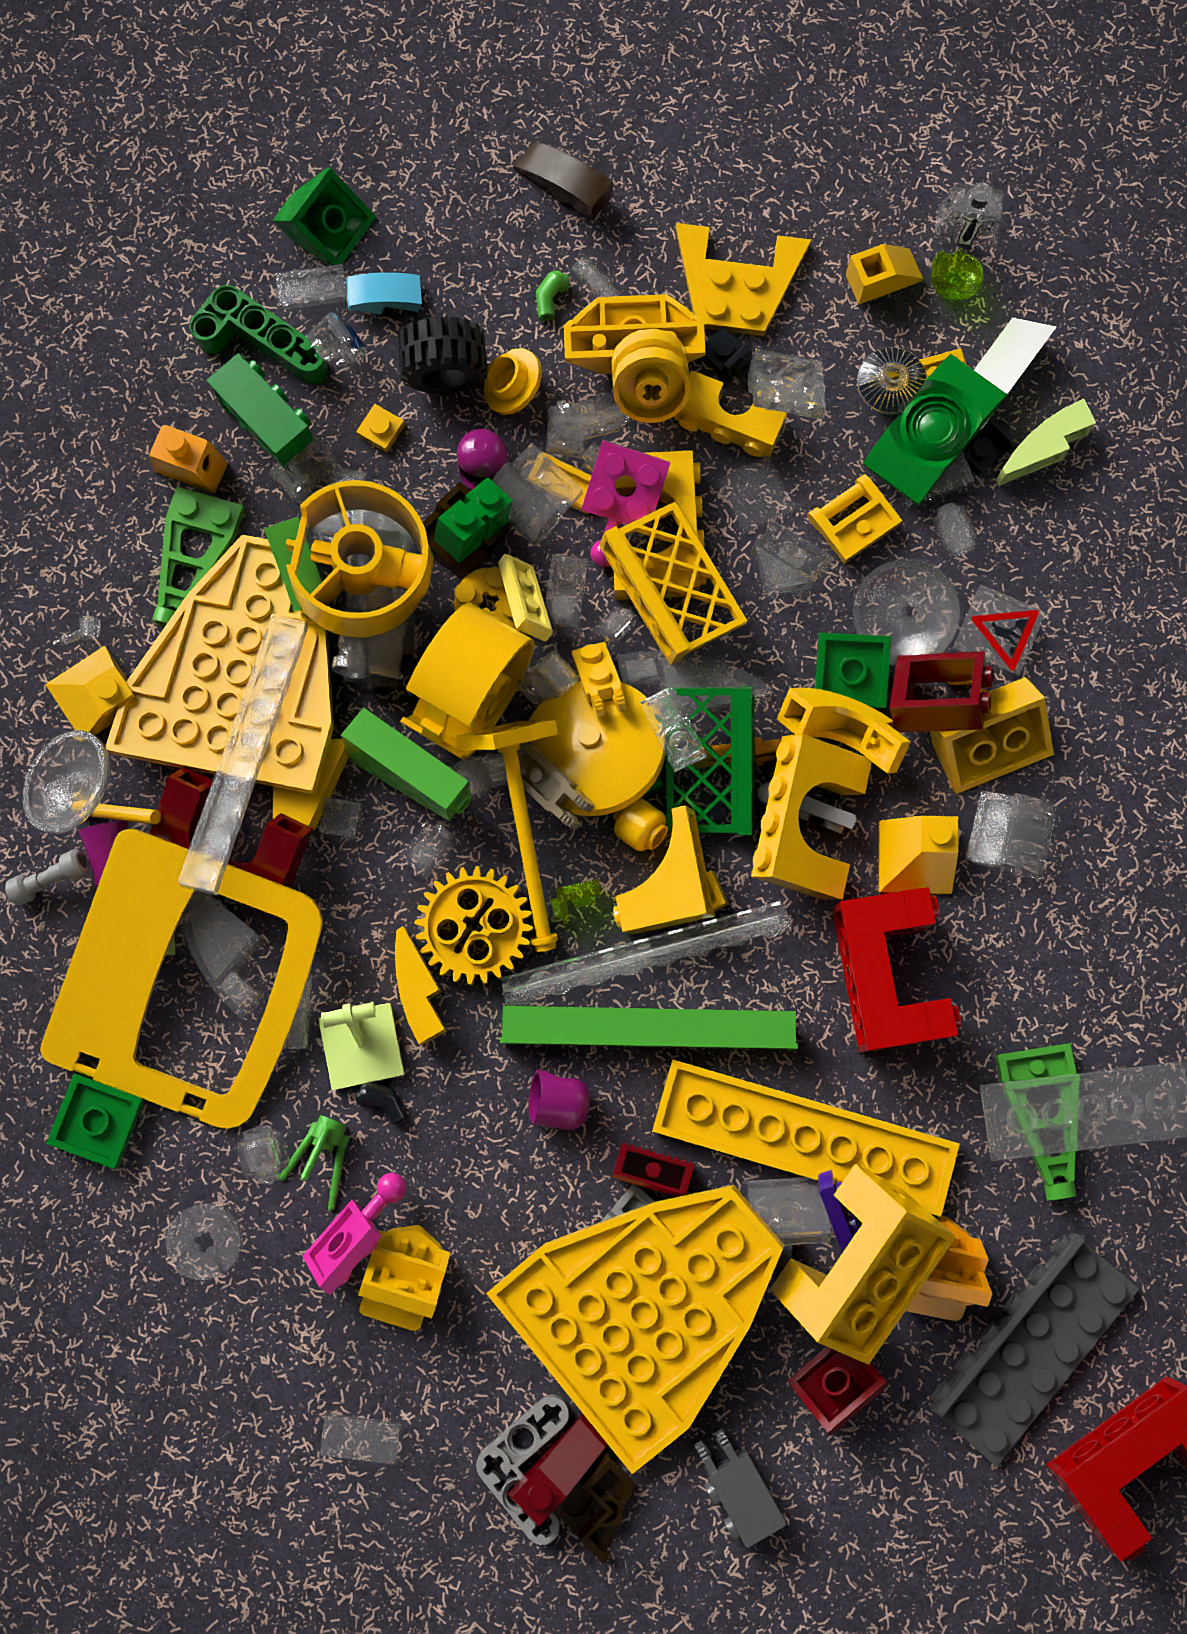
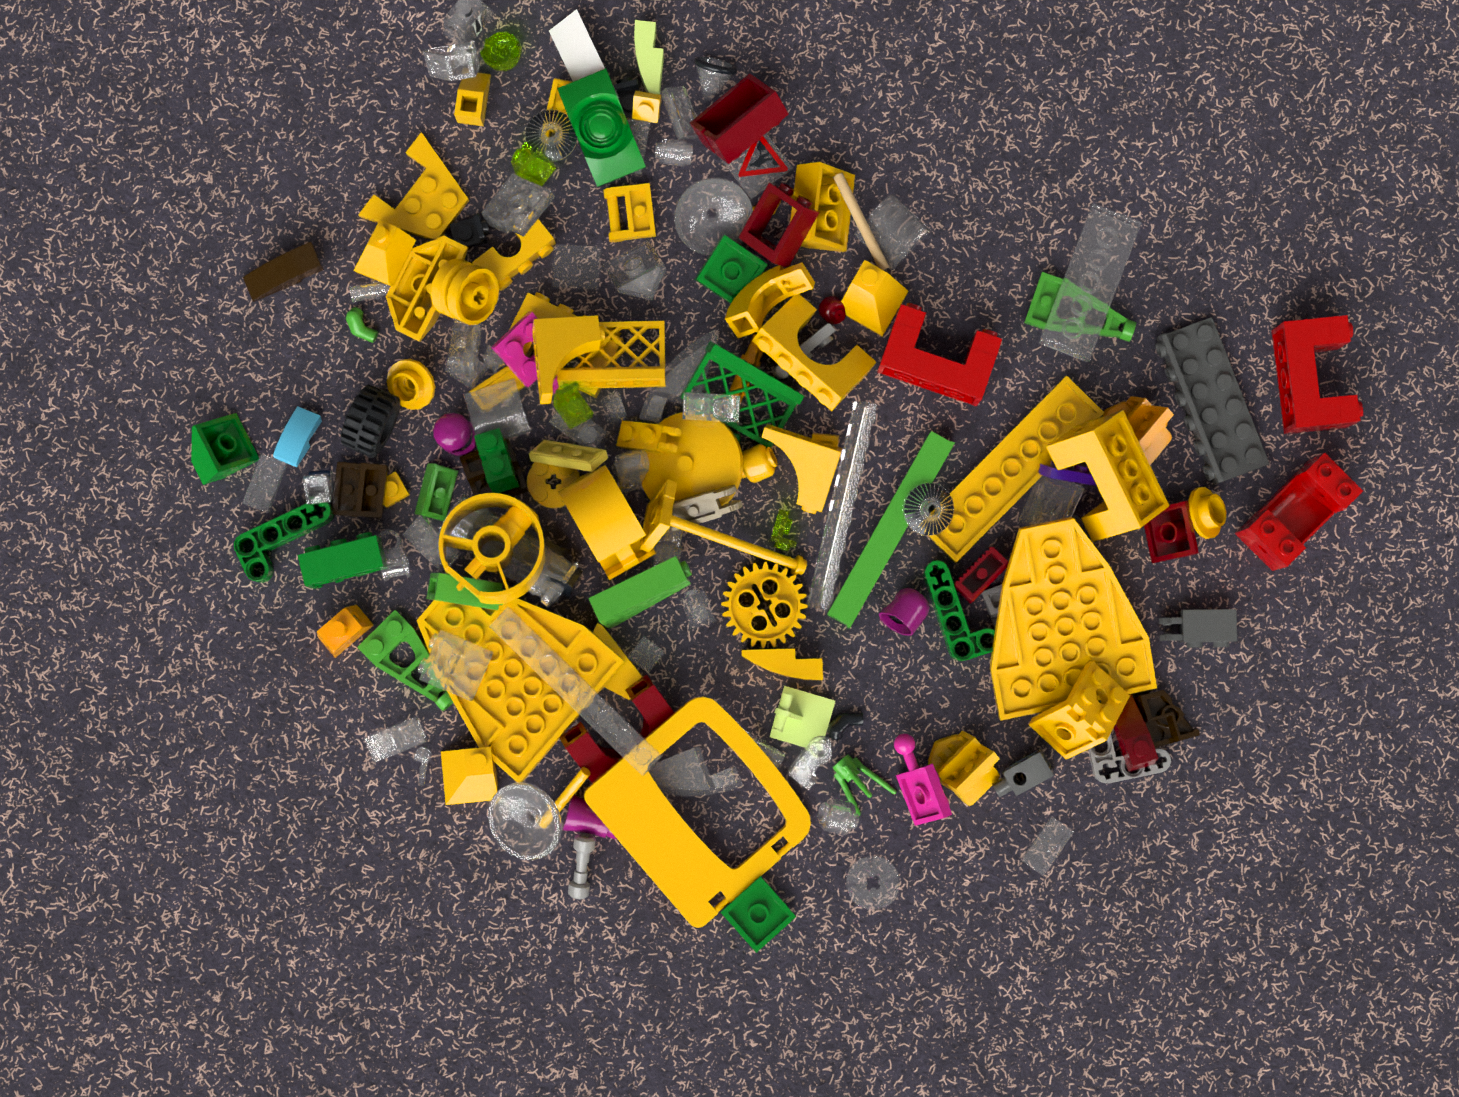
camera: 65 degrees left, 5 degrees up
(91, 585) = (395, 739): none -> clear slope
(208, 601) = (454, 664): none -> clear plate
(321, 1083) = (814, 754): none -> clear leg
(359, 391) = (359, 490): none -> dark brown slope
(409, 477) = (436, 491): none -> bright green slope
(448, 1367) = (1034, 766): none -> dark grey torso
(537, 1396) = (1082, 714): none -> yellow bracket
(586, 566) = (571, 405): none -> clear neon green bracket
(592, 1159) = (954, 609): none -> green beam
(647, 269) = (385, 253): none -> yellow slope
(647, 508) = (560, 341): none -> yellow arch
(692, 1043) = (917, 505): none -> dish
(843, 377) = (531, 165): none -> clear neon green bracket
(875, 815) = (832, 310): none -> dark red piece
(888, 1418) = (1206, 512): none -> yellow piece
(913, 228) = (452, 61): none -> clear slope
(958, 1540) = (1298, 511): none -> red piece
(989, 466) = (646, 106): none -> yellow plate
(1001, 788) = (860, 221): none -> tan bar
(1006, 512) = (679, 111): none -> clear plate
(1040, 578) = (739, 118): none -> dark red piece
(1072, 524) = (713, 75): none -> clear hat

